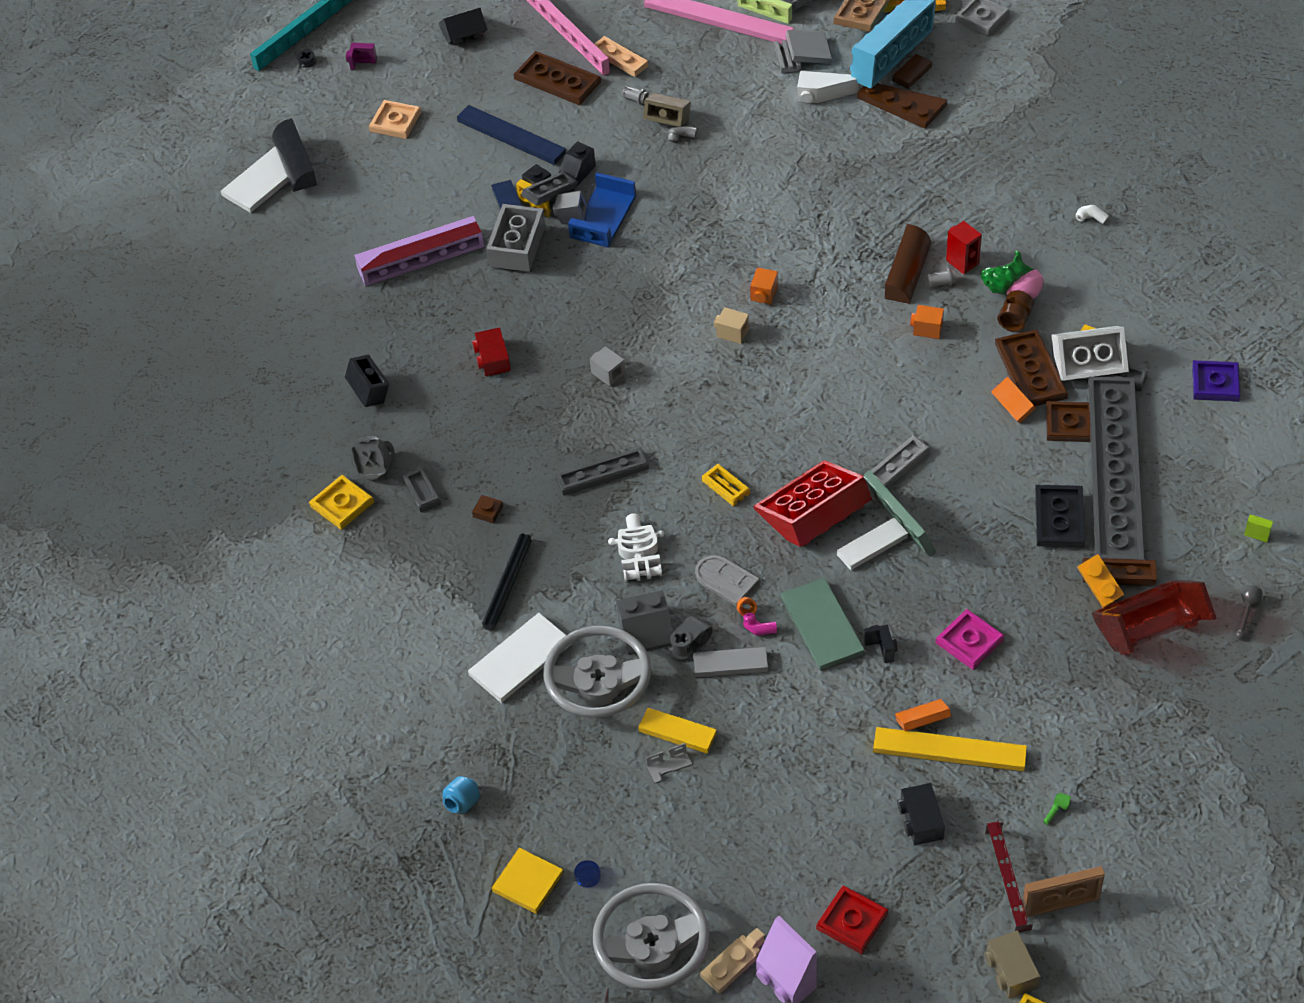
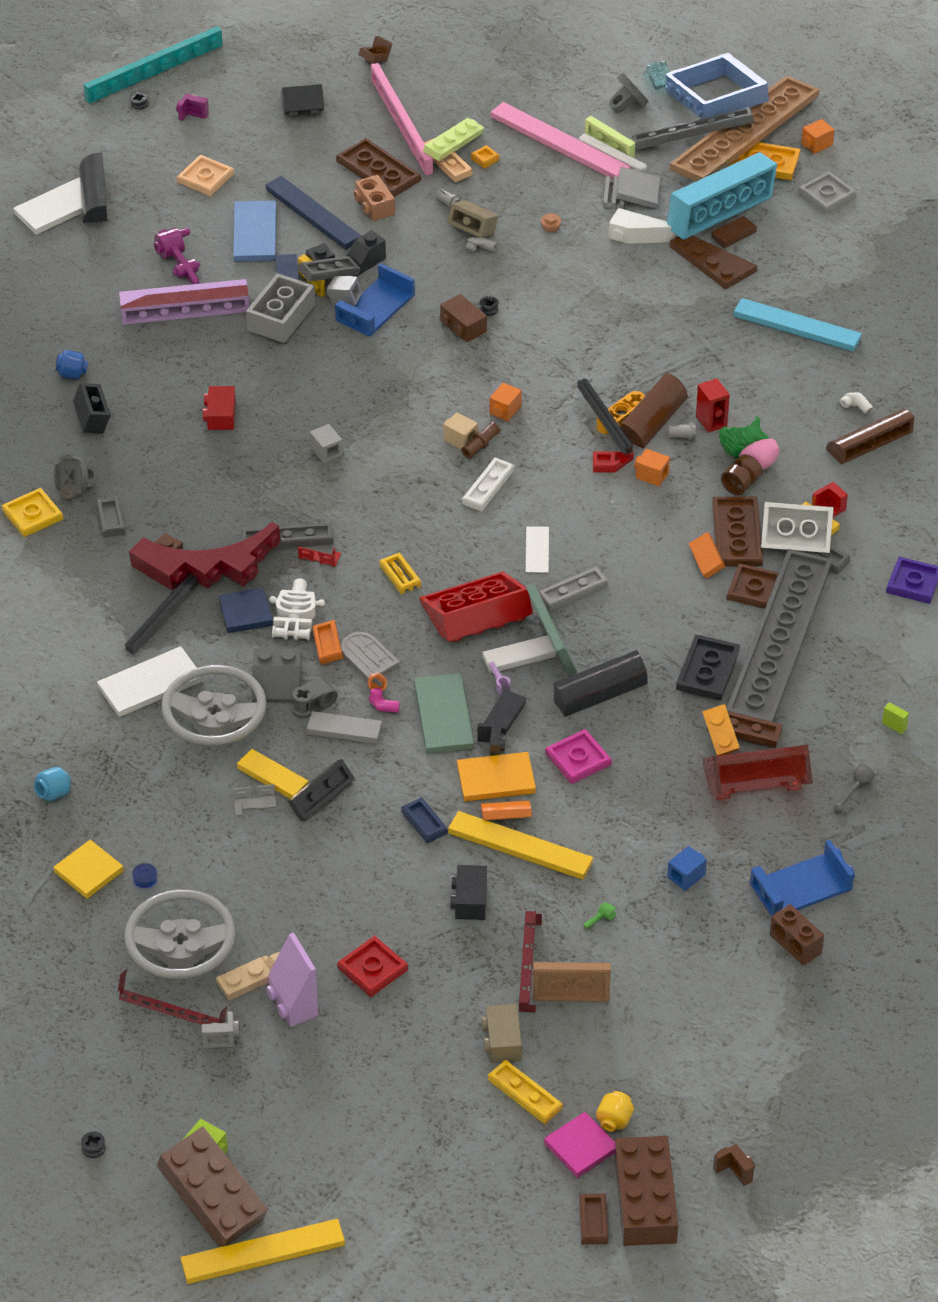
camera: 10 degrees right, 5 degrees down
(330, 339) = (71, 364): none -> blue head
(387, 195) = (171, 244): none -> magenta piece
(461, 164) = (254, 231): none -> medium blue tile
(502, 528) = (234, 561): none -> dark red arch
(565, 108) = (374, 198): none -> nougat brick
(588, 558) = (245, 610): none -> dark blue tile
(620, 35) = (453, 139): none -> yellowish green plate
(633, 484) = (323, 558): none -> red piece
(653, 46) = (485, 156): none -> light orange tile
(681, 574) = (327, 642): none -> orange tile
(693, 210) = (463, 318): none -> reddish brown brick
(713, 188) = (487, 302): none -> black bush
(733, 736) = (321, 789): none -> black plate
(739, 97) = (551, 222): none -> nougat plate
(754, 330) = (480, 440): none -> reddish brown pin
(776, 373) = (488, 484): none -> white tile
(796, 24) = (634, 163): none -> white axle
(845, 744) = (424, 820): none -> dark blue tile
(847, 429) = (537, 549): none -> white sticker
(865, 280) = (605, 416): none -> black axle
(866, 576) = (500, 680): none -> lavender hand
(875, 280) = (624, 404): none -> light orange beam
(881, 606) = (506, 710): none -> black tile
(884, 323) = (610, 461): none -> red tile
(898, 680) = (496, 776): none -> light orange tile
(964, 558) = (600, 683): none -> black brick
(1006, 149) = (797, 324): none -> medium azure tile
(1107, 315) = (831, 496): none -> red panel
(1119, 245) = (871, 436): none -> reddish brown brick
(1123, 735) = (687, 868): none -> blue brick
(1239, 722) = (804, 882): none -> blue panel
(1258, 783) = (796, 934): none -> reddish brown brick

